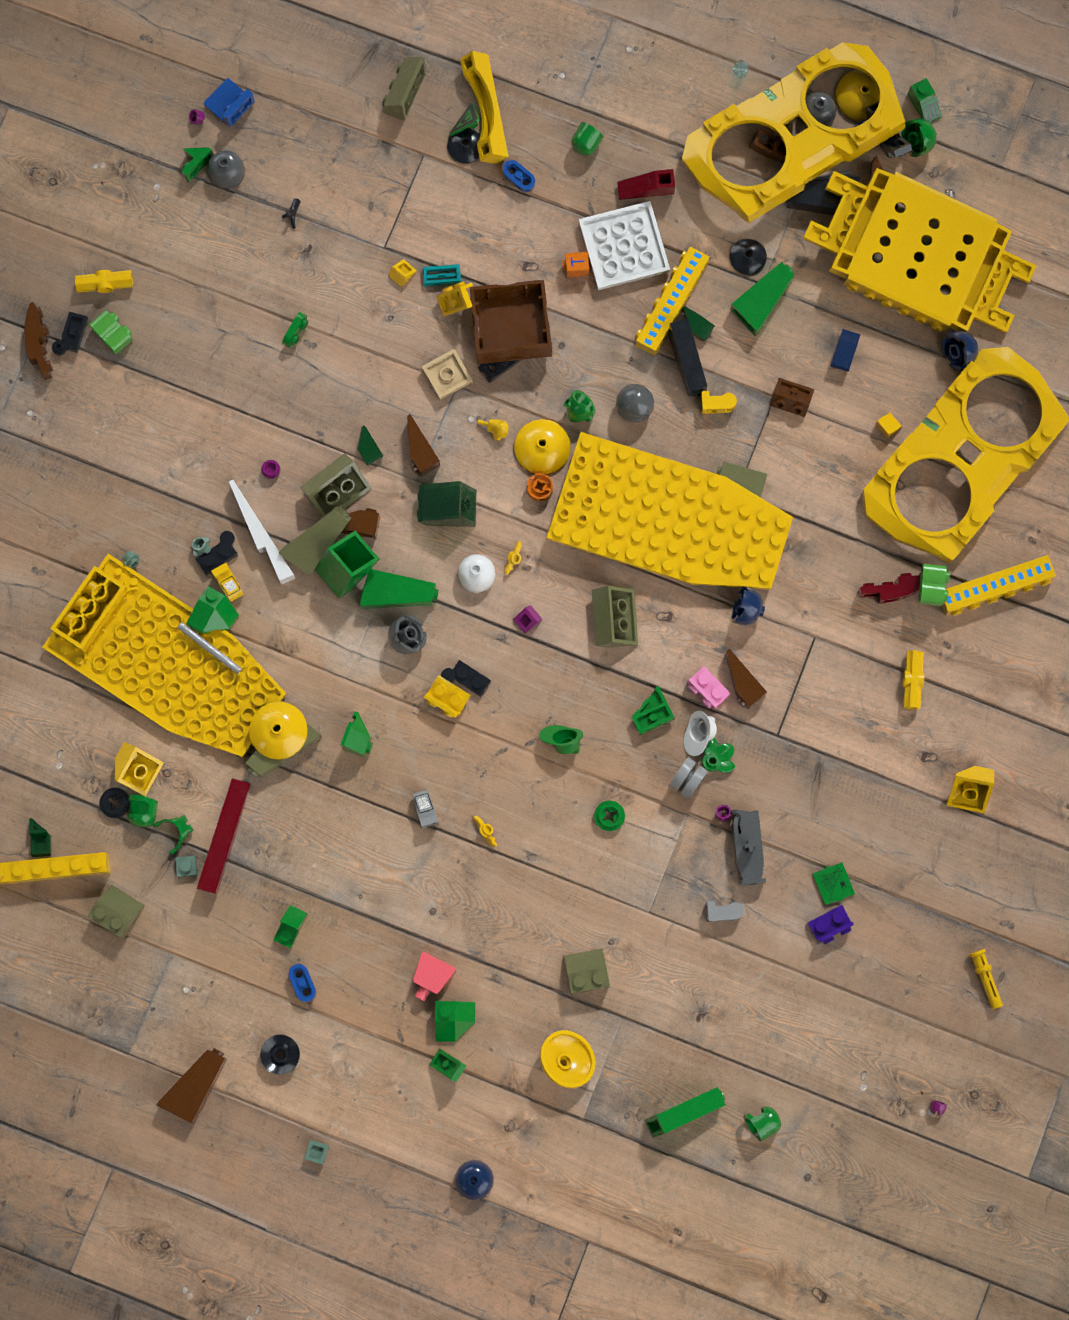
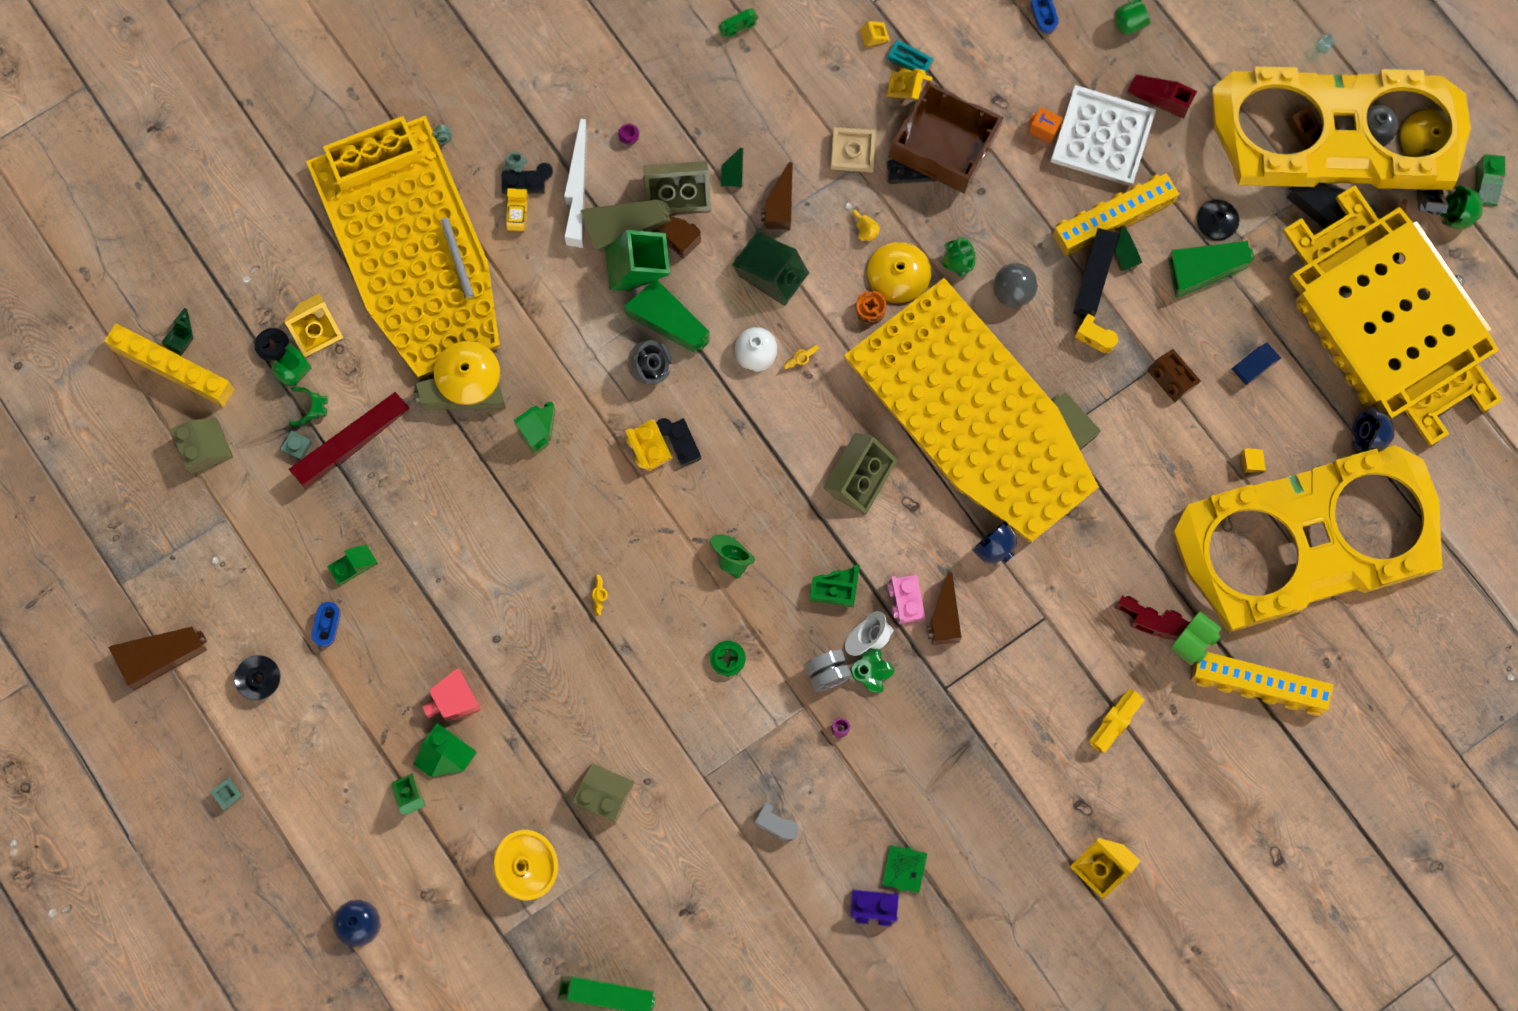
camera: 30 degrees right, 5 degrees down
(212, 612) = (482, 227): green slope -> none
(425, 809) = (555, 537): light grey leg -> none
(527, 619) = (776, 422): magenta slope -> none
(748, 847) = (842, 777): dark grey piece -> none

